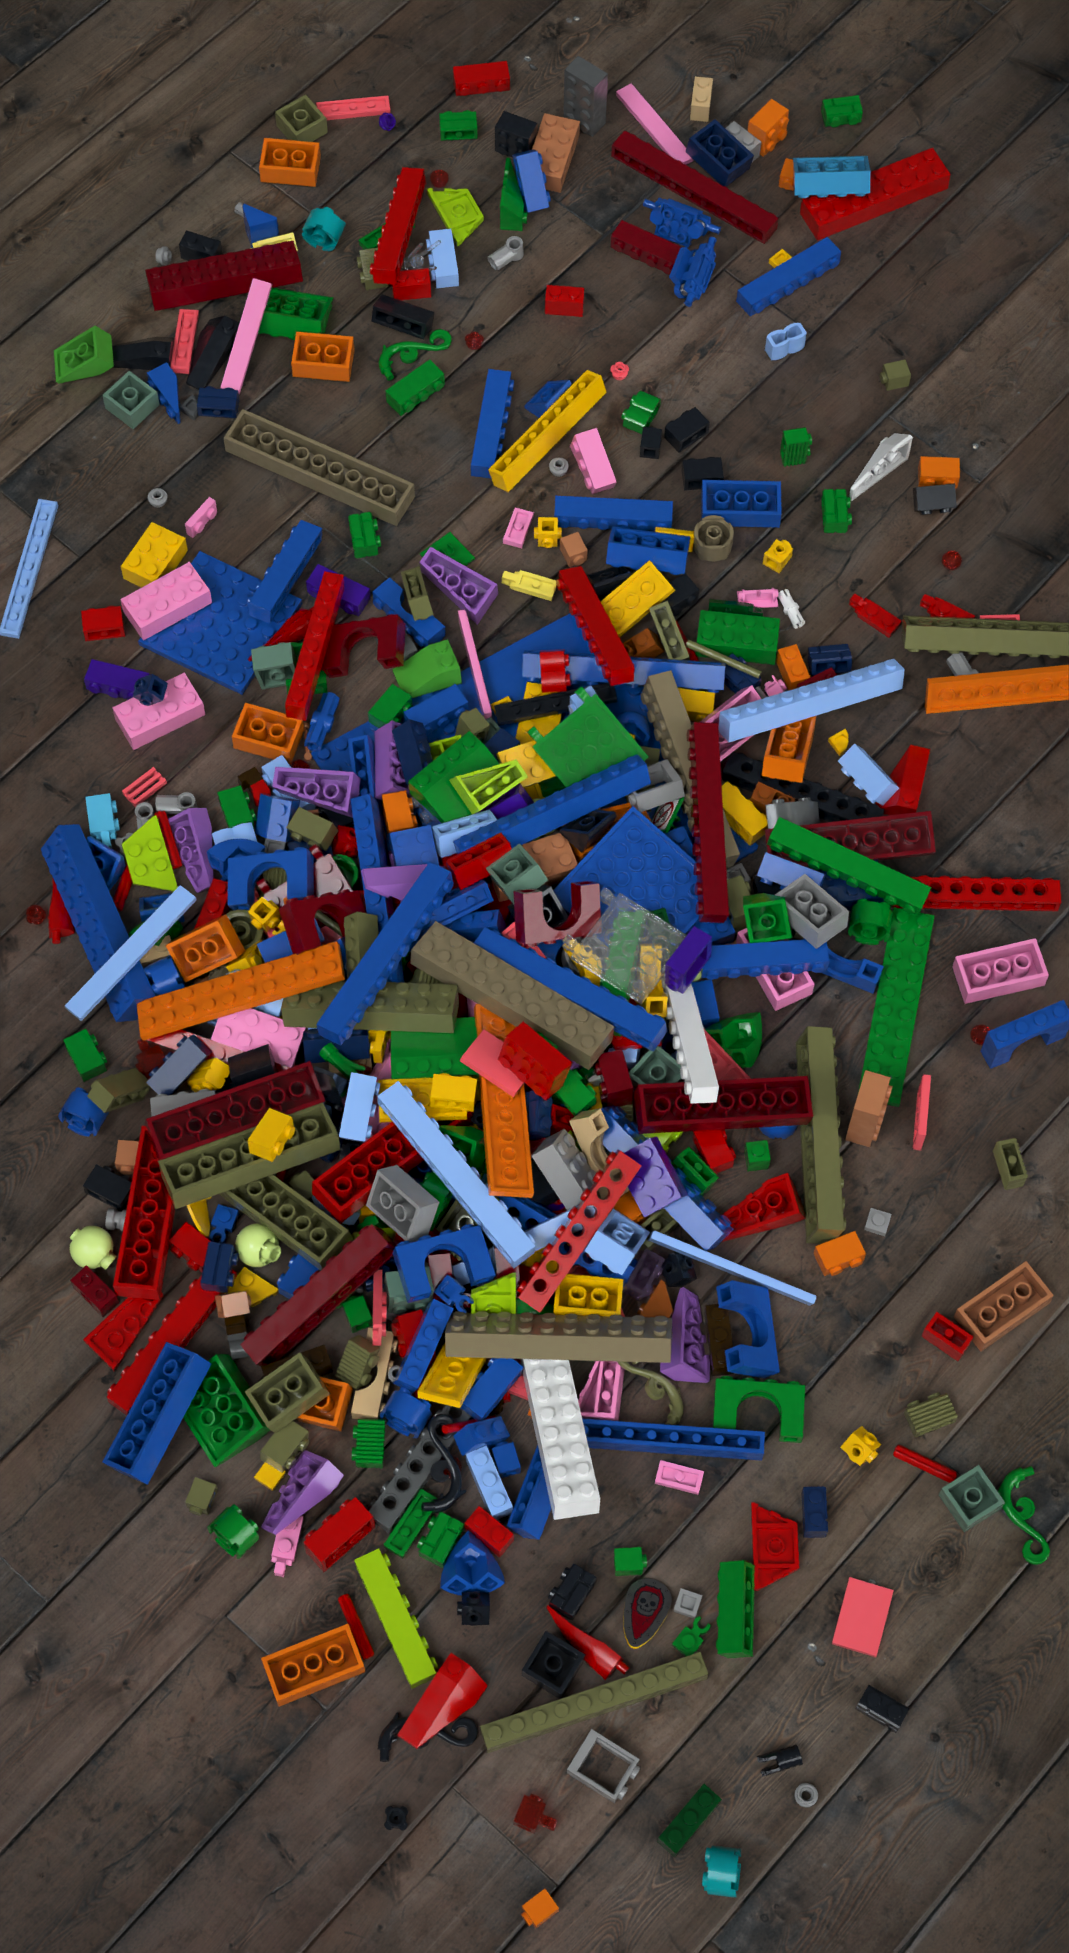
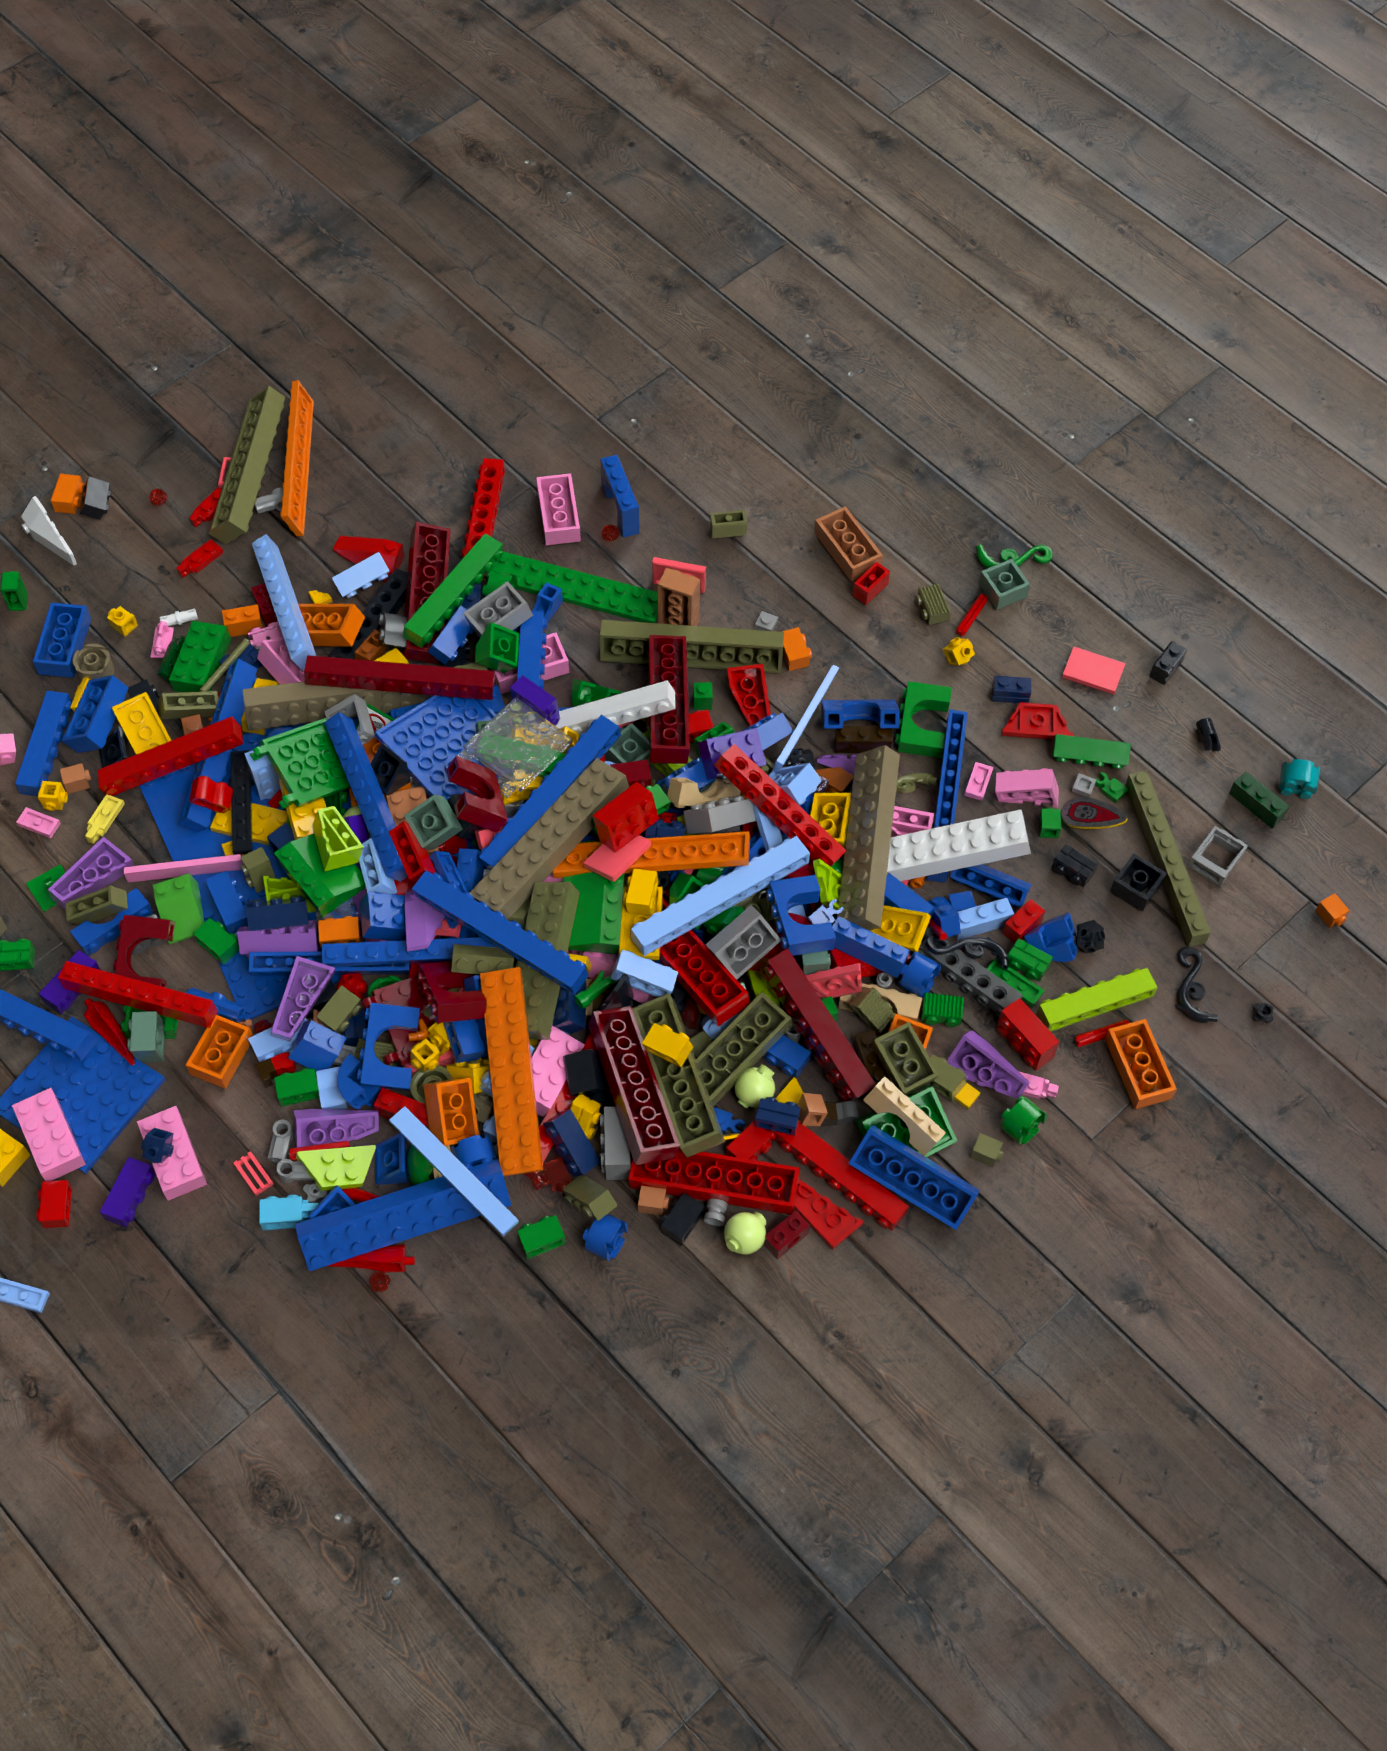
camera: 85 degrees left, 5 degrees down
(212, 1413) = (922, 1129): none -> tan arch
(448, 1696) = (1168, 969): red wedge -> none
(532, 1815) = (1258, 910): clear red brick -> none
(597, 1654) = (1130, 845): red piece -> none
(674, 1534) = (1027, 785): none -> bright pink wedge
(701, 469) = (19, 668): black brick -> none
(808, 1788) = (1237, 719): light grey plate -> none
(824, 657) = (239, 590): dark blue brick -> none
(835, 511) = (87, 572): green brick -> none

